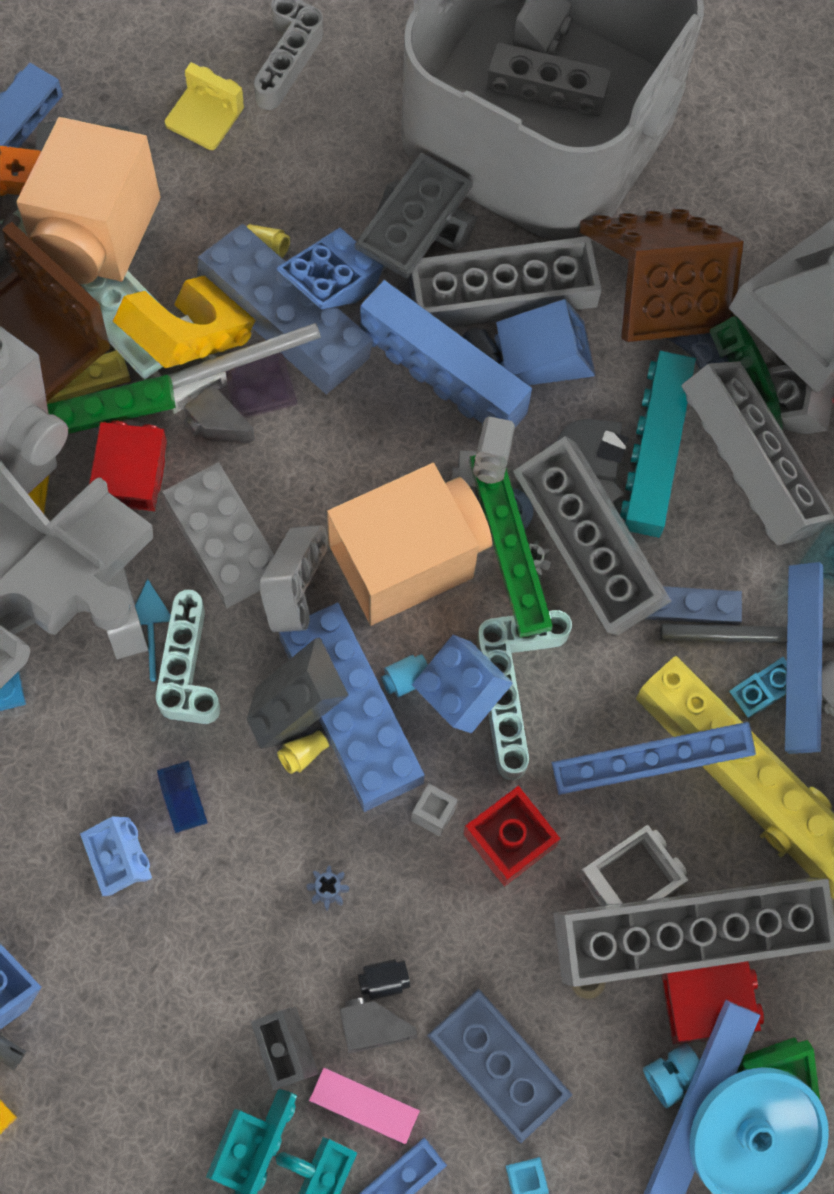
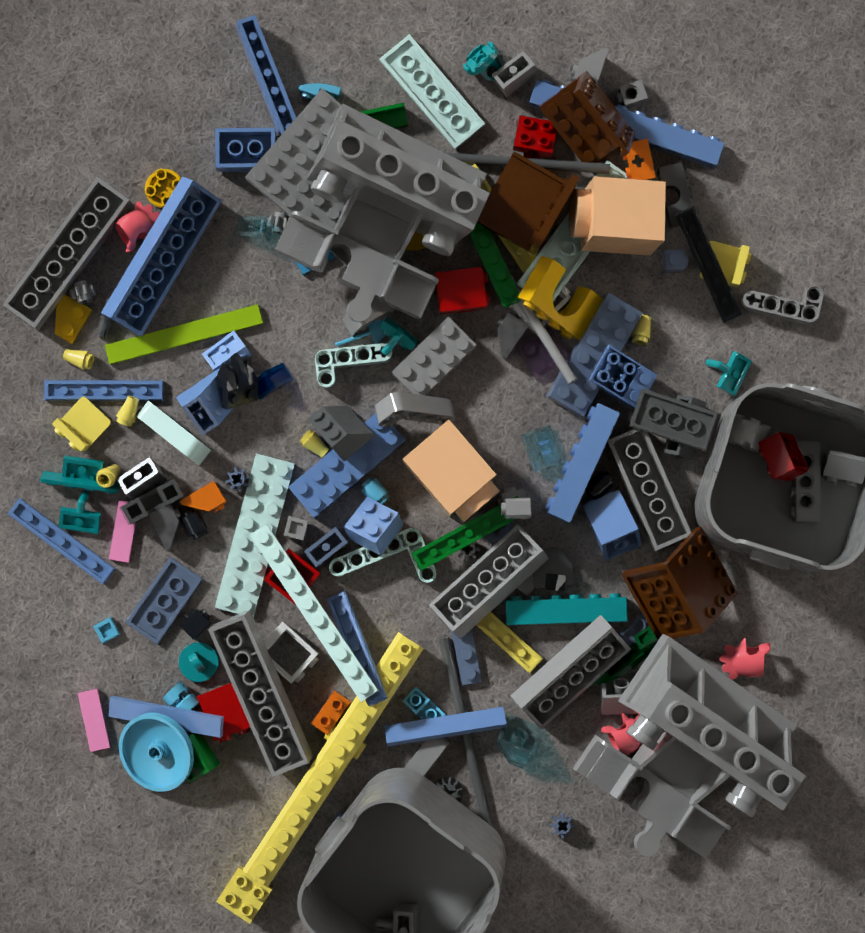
camera: 80 degrees right, 15 degrees up
(45, 1109) = (79, 358): none -> light yellow cone
(60, 923) = (183, 334): none -> lime tile
(112, 1082) = (103, 390): none -> medium blue tile
(160, 1131) = (82, 424): none -> light yellow bracket
(162, 1044) = (128, 411): none -> light yellow cone
(167, 841) = (238, 382): none -> black plate
(175, 574) = (398, 335): none -> teal plate
(179, 171) = (674, 261): none -> sand blue brick
(184, 896) = (204, 403): none -> medium blue slope
(205, 126) = (708, 264): none -> black tile
(219, 974) = (173, 433): none -> light aqua beam
(263, 1106) = (107, 476): none -> light yellow cone
(324, 1032) = (151, 501): none -> dark grey arch
(347, 947) = (206, 498): none -> orange slope
(364, 136) = (733, 372): none -> teal plate
(404, 418) = (542, 448): none -> clear light blue brick
(427, 886) = (261, 506): none -> light aqua plate
(476, 770) = (326, 547): none -> sand blue brick
(509, 81) = (783, 456): none -> red brick
(550, 1017) = (195, 622): none -> black brick
(582, 806) = (314, 613): none -> light aqua plate
(615, 1032) = (198, 662): none -> teal tile
(691, 535) = (509, 642): none -> light yellow tile
(745, 830) = (331, 712): none -> orange brick
(786, 220) = (744, 660): none -> coral piece

